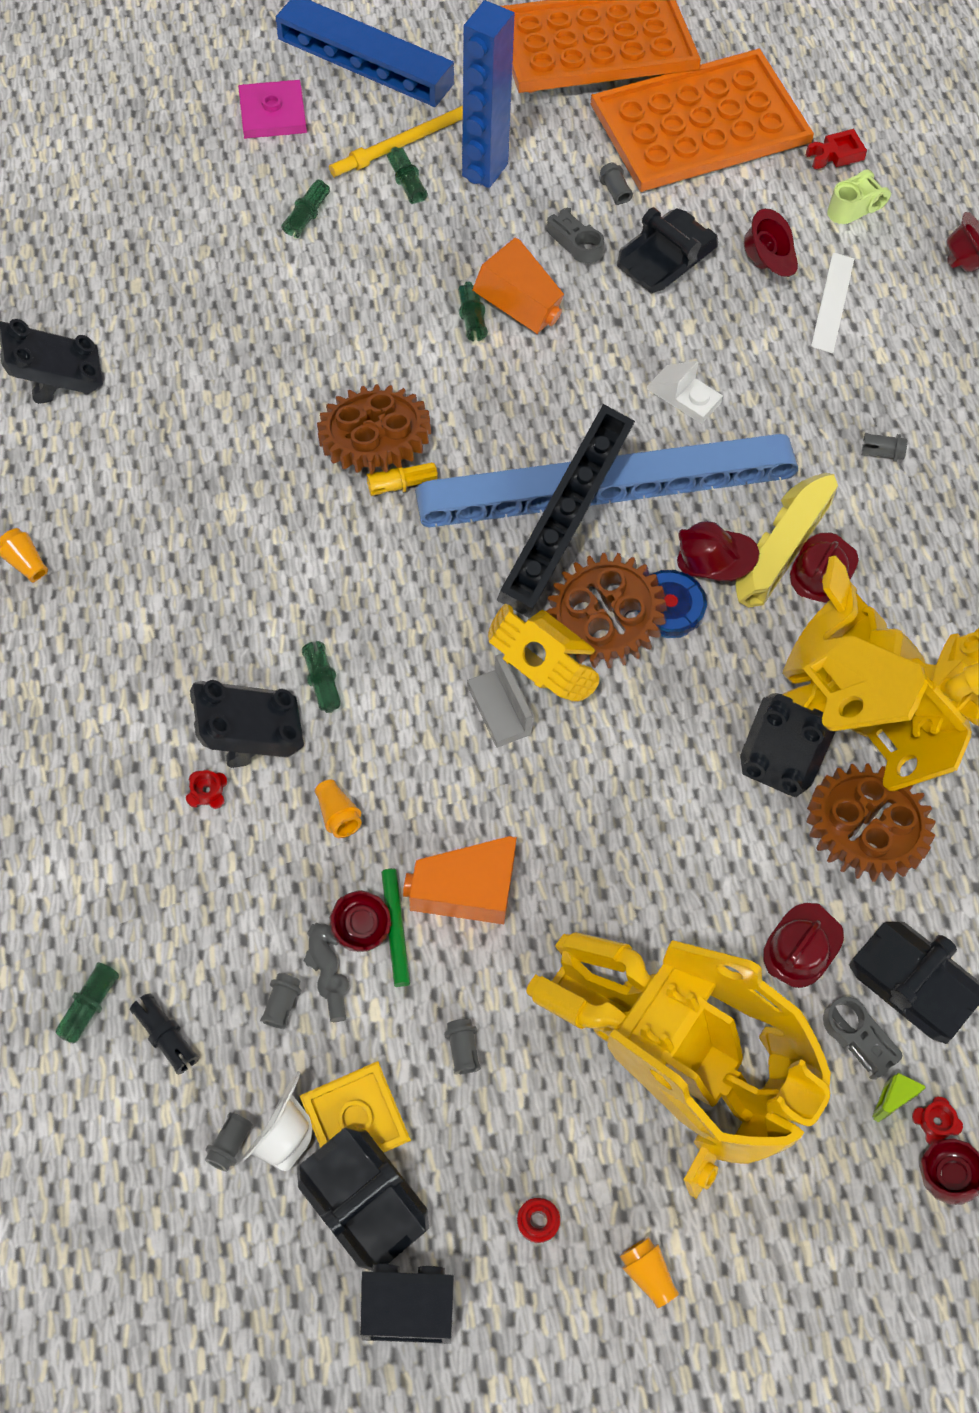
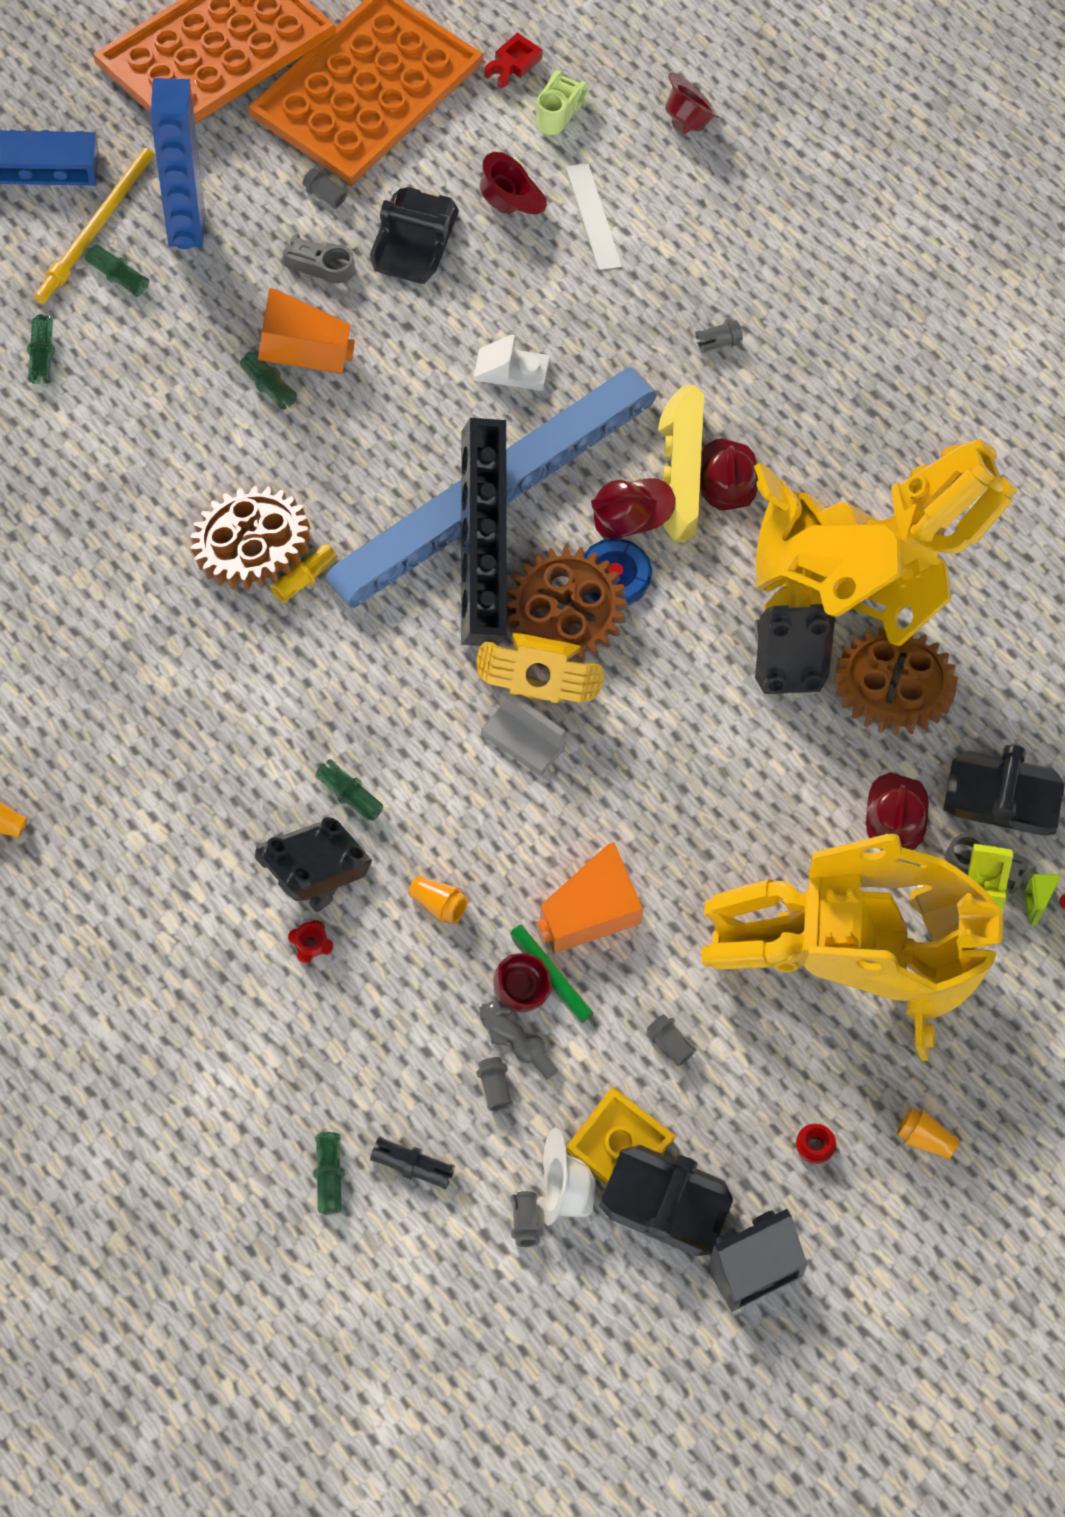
camera: 30 degrees left, 0 degrees up
(851, 1056) = (991, 870): none -> neon yellow slope

